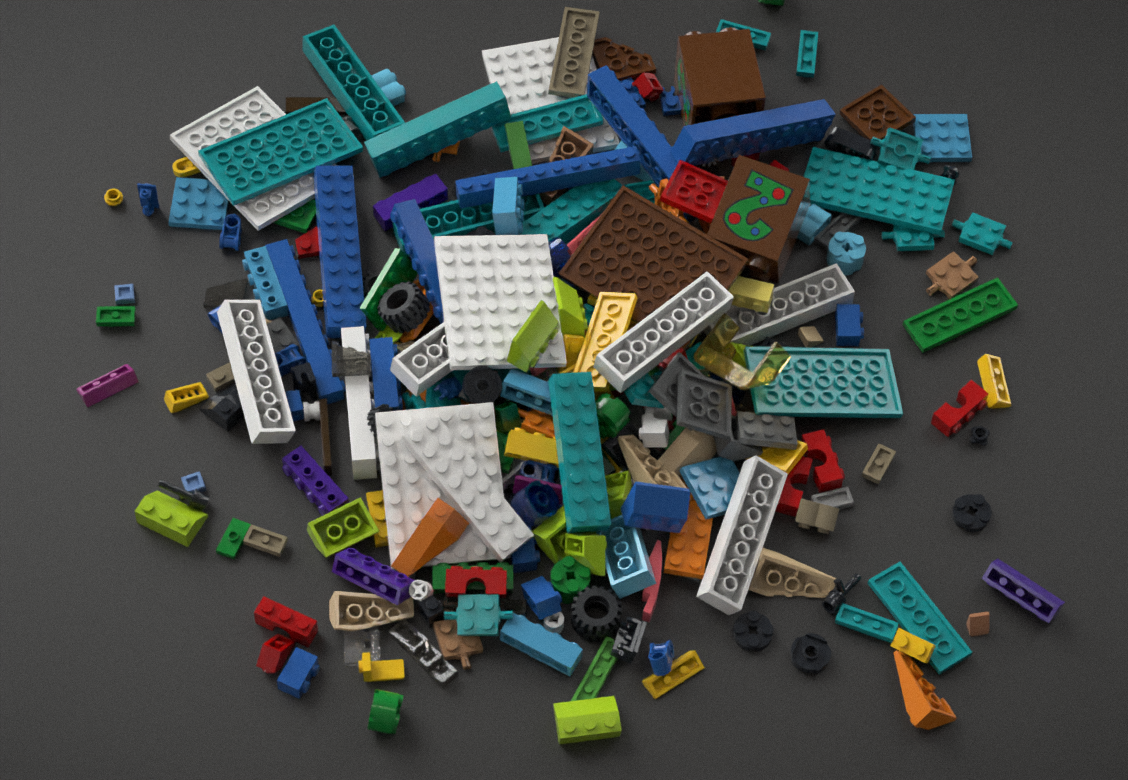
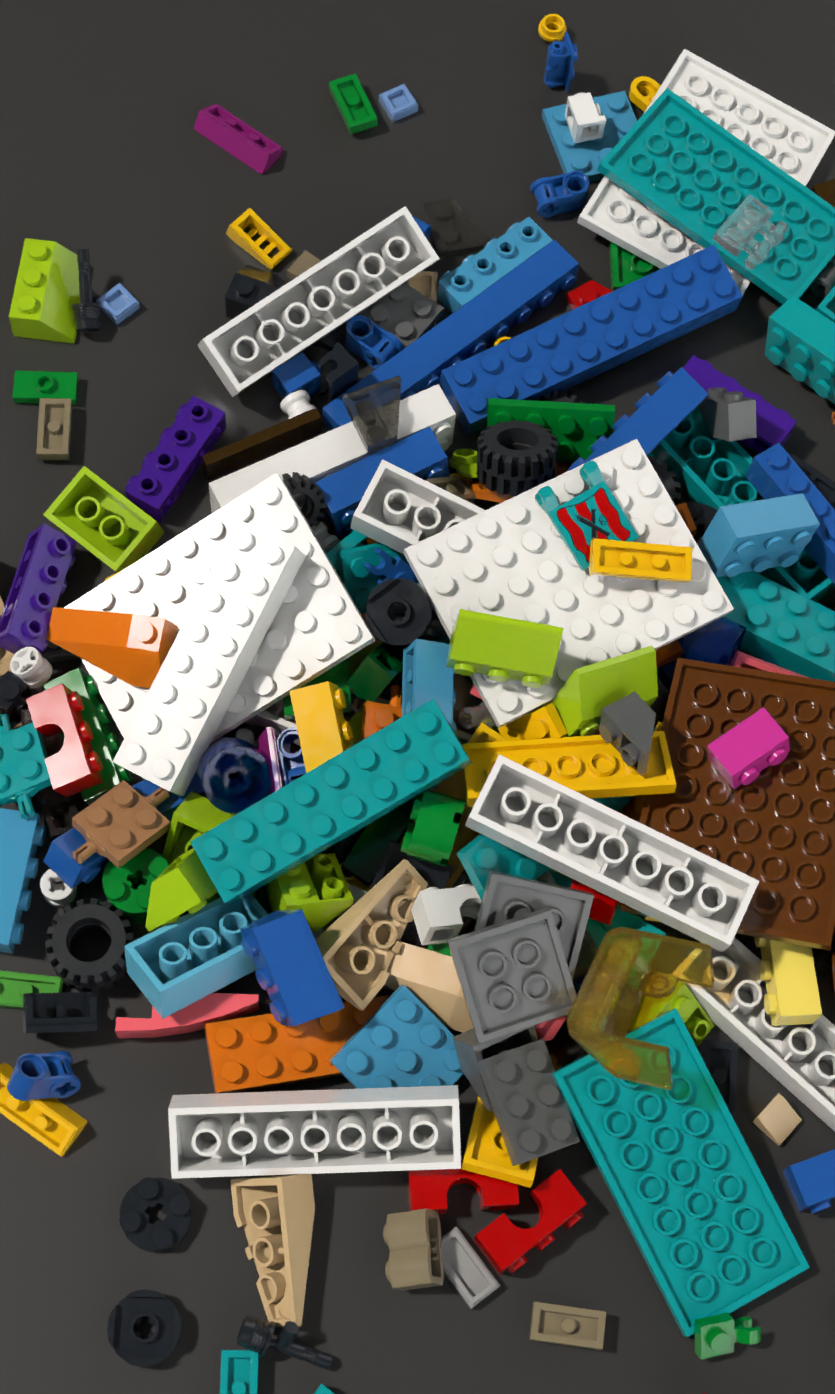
camera: 65 degrees right, 10 degrees up
(191, 200) = (584, 118): none -> white brick
(307, 147) = (743, 225): none -> clear plate
(427, 197) = (729, 414): none -> dark grey slope
(474, 274) = (587, 515): none -> flag
(508, 259) = (640, 560): none -> yellow plate
(538, 569) = (120, 824): none -> medium nougat plate
(598, 302) = (629, 728): none -> dark grey slope
(629, 254) = (749, 749): none -> dark pink brick
(906, 399) = (718, 1333): none -> green plate

